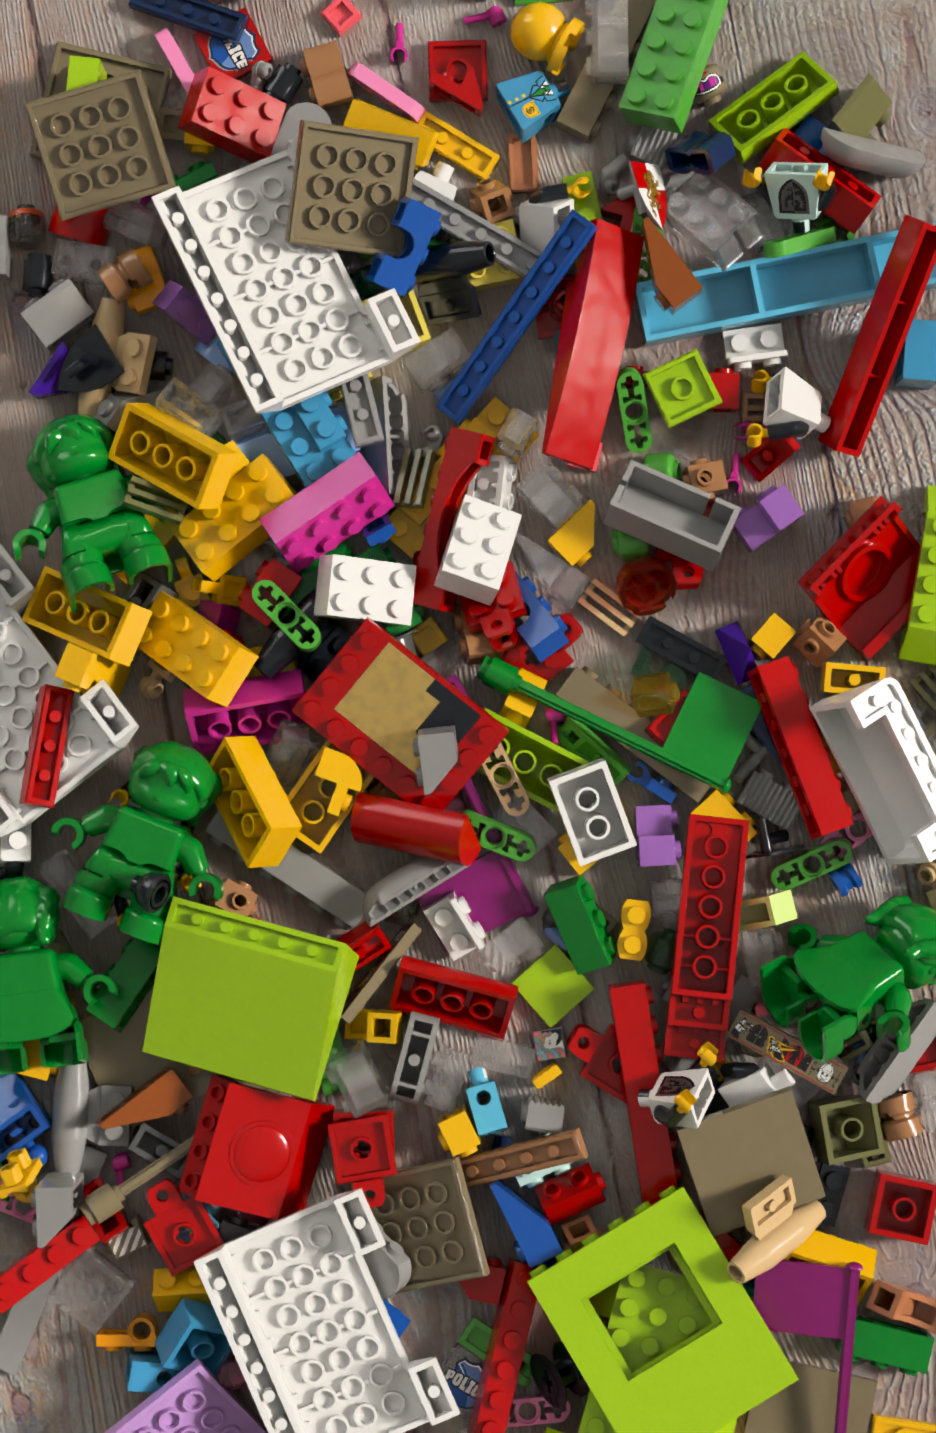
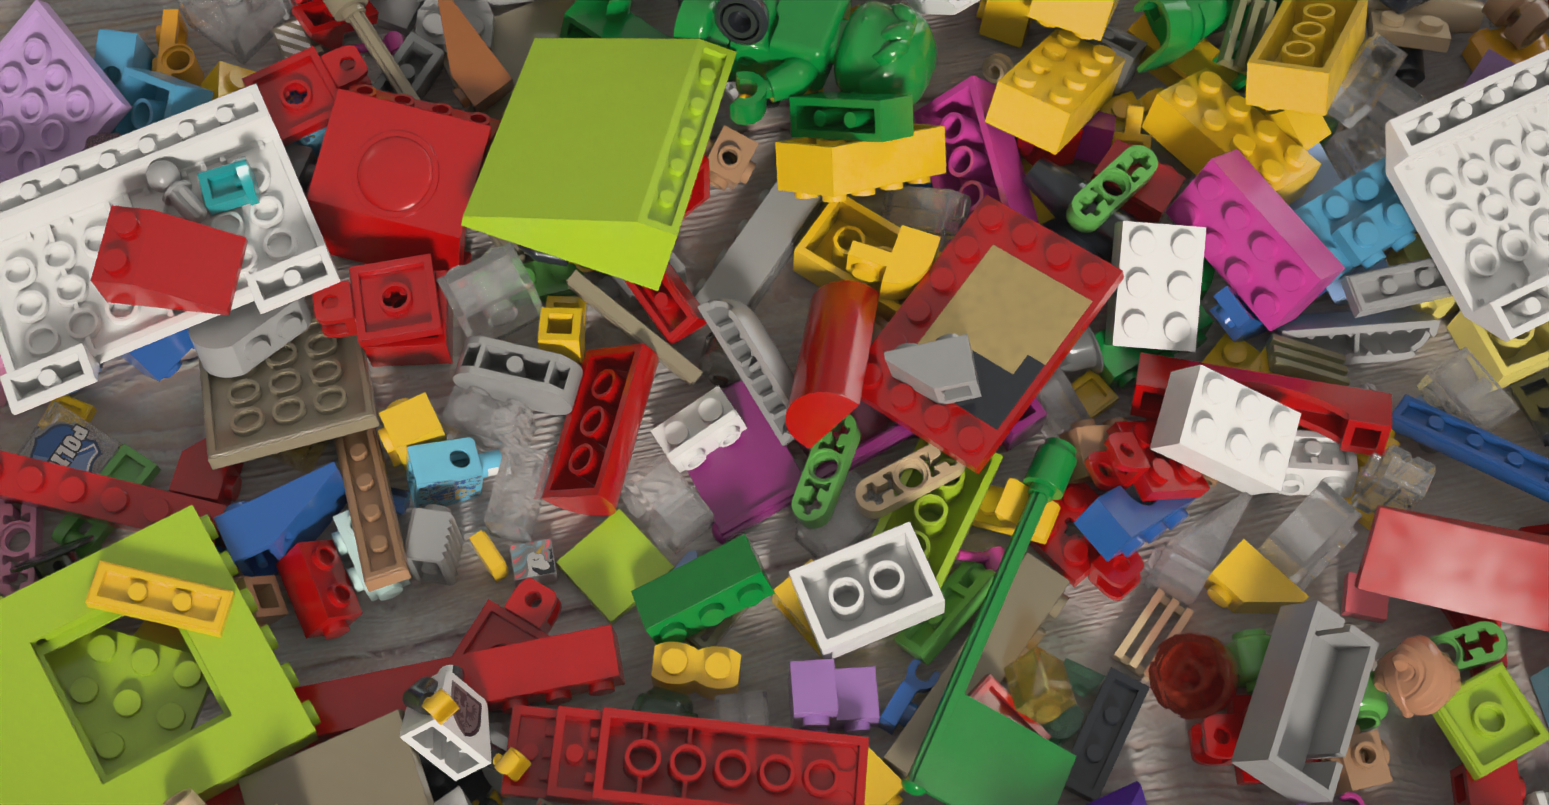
camera: 85 degrees right, 20 degrees down
(229, 810) = (852, 116): none -> green brick
(270, 1324) = (165, 178): none -> light grey axle
(274, 1276) = (229, 186): none -> teal tile
(340, 1313) = (167, 262): none -> red slope
(597, 1296) = (160, 598): none -> yellow tile
(654, 435) = (1417, 676): none -> nougat hair

